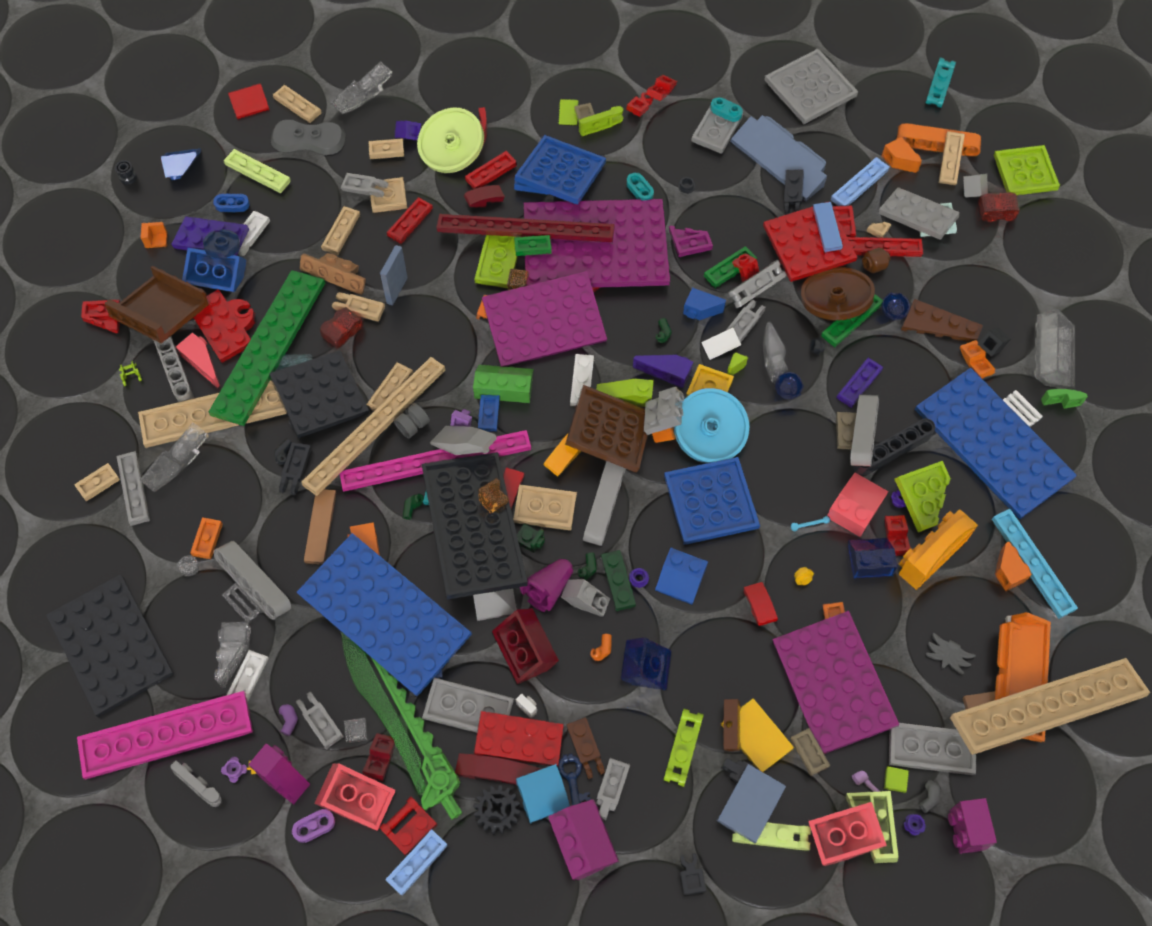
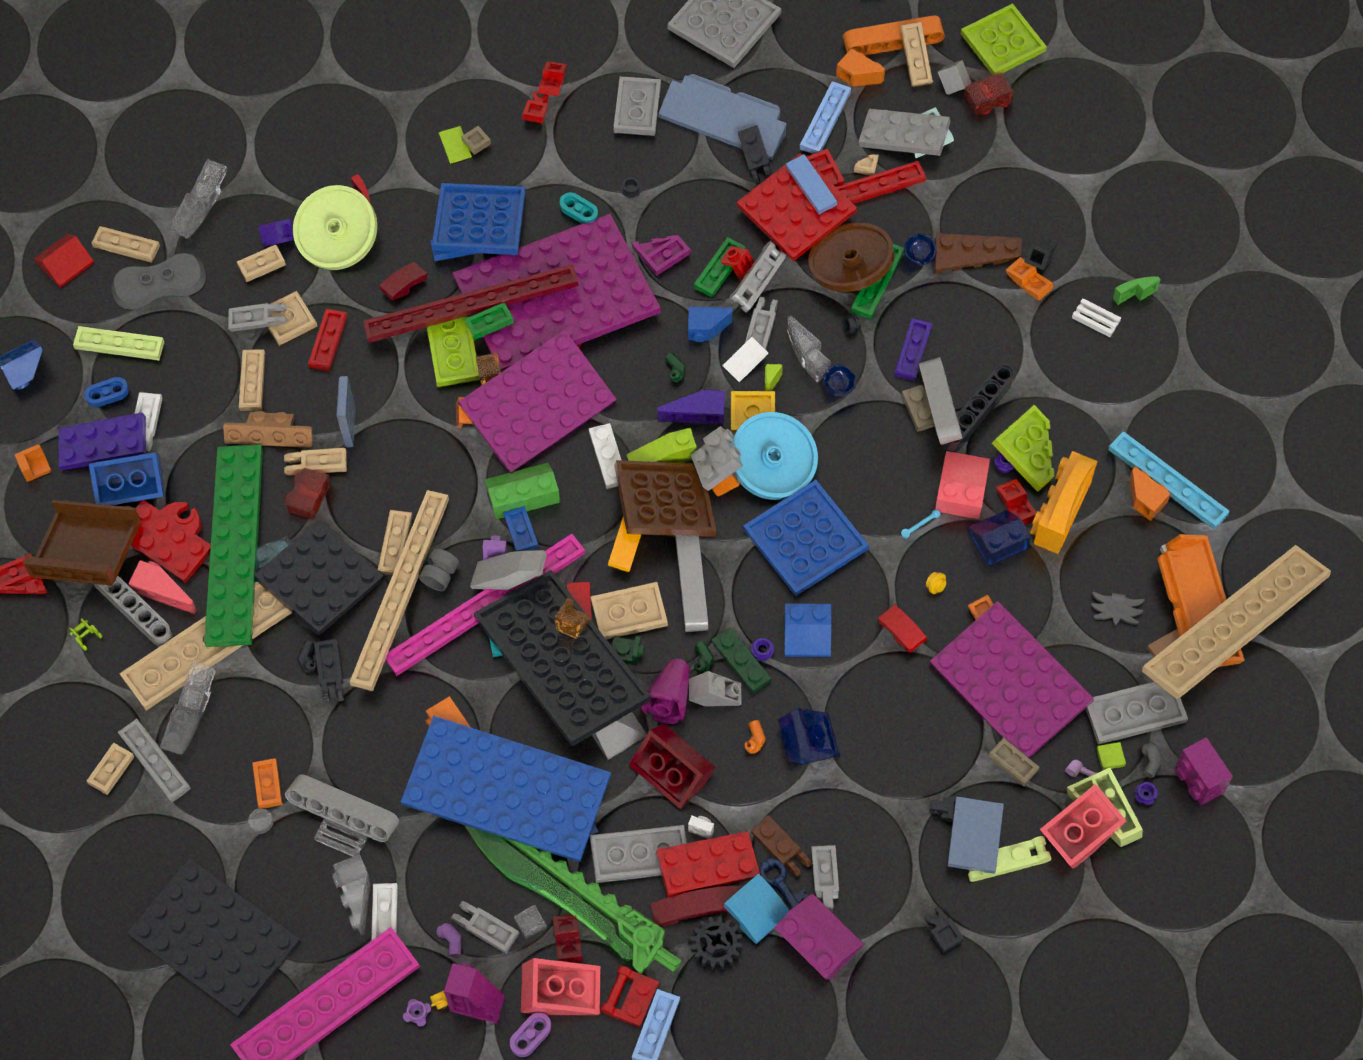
camera: 20 degrees left, 0 degrees up
(198, 784) = (384, 1042): light grey hinge -> none
(221, 244) = (127, 445): dark blue tile -> none
(320, 527) = (389, 725): medium nougat tile -> none
(411, 504) = (479, 662): dark green arm -> none
(491, 170) = (397, 247): red plate -> none
(600, 121) = (499, 143): lime hinge -> none
(683, 747) = (882, 807): lime plate -> none
(726, 109) = (639, 81): teal plate -> none
(732, 734) = (927, 774): reddish brown piece -> none
(760, 737) = (953, 766): yellow tile -> none
(876, 260) = (878, 203): reddish brown head -> none
(995, 443) = (1081, 364): blue plate -> none
(1055, 350) = (1108, 238): clear slope -> none

